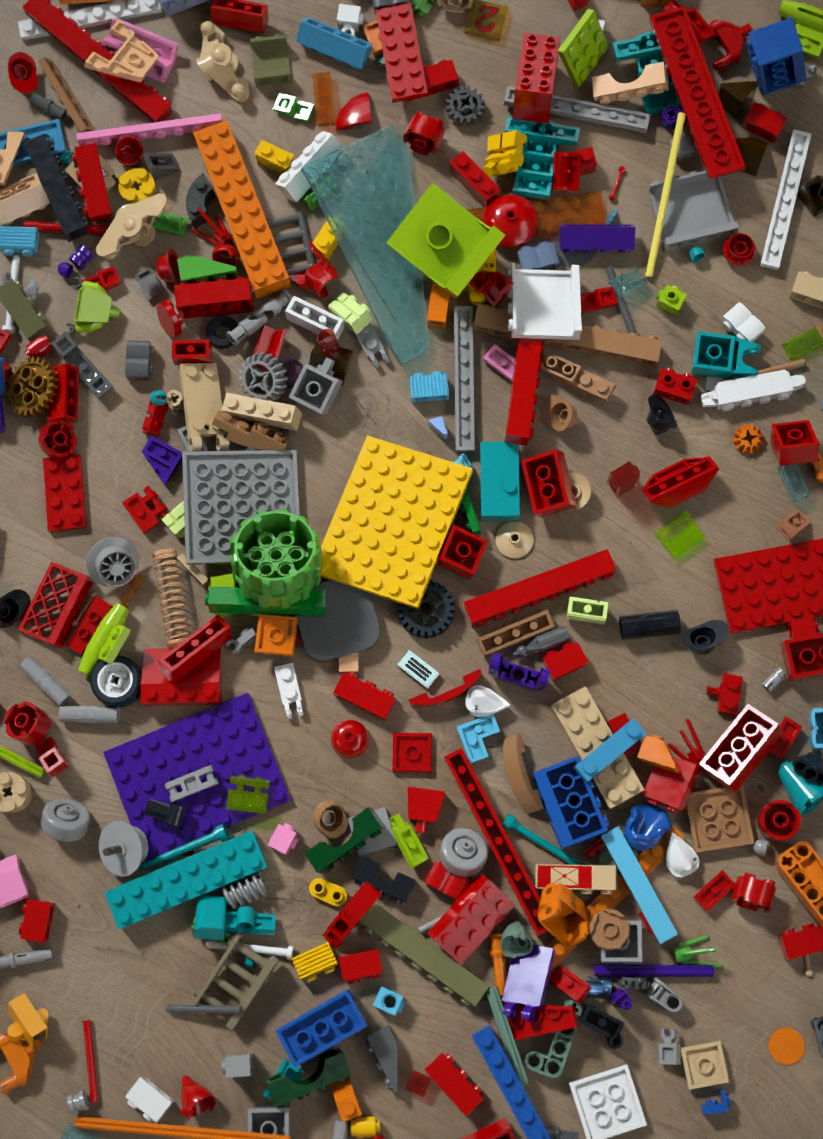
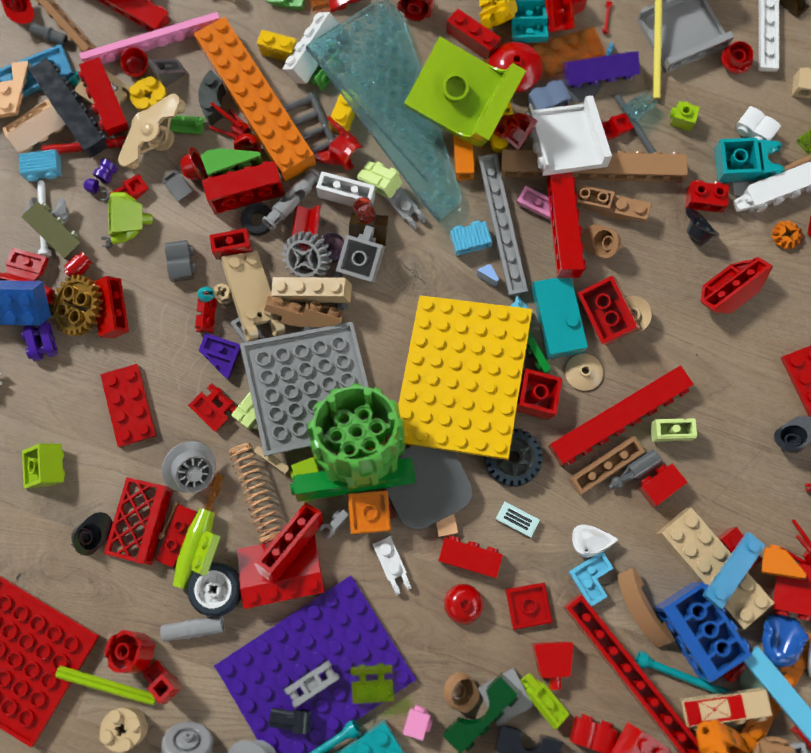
camera: 15 degrees left, 0 degrees up
(45, 681) = (141, 602): light grey axle -> none
(57, 439) = (111, 352): red cylinder -> none
(87, 371) = (130, 280): dark grey slope -> none
(169, 319) = (203, 215): red tile -> none
(424, 701) = (570, 522): red slope -> none
(463, 852) = (605, 702): light grey wheel -> none
(497, 661) = (649, 507): dark purple connector -> none
(623, 479) = (680, 293): clear red brick -> none
(650, 624) = (741, 432): black piece -> none
(683, 540) = (748, 344): clear neon green plate -> none
(696, 254) = (697, 69): teal hinge -> none

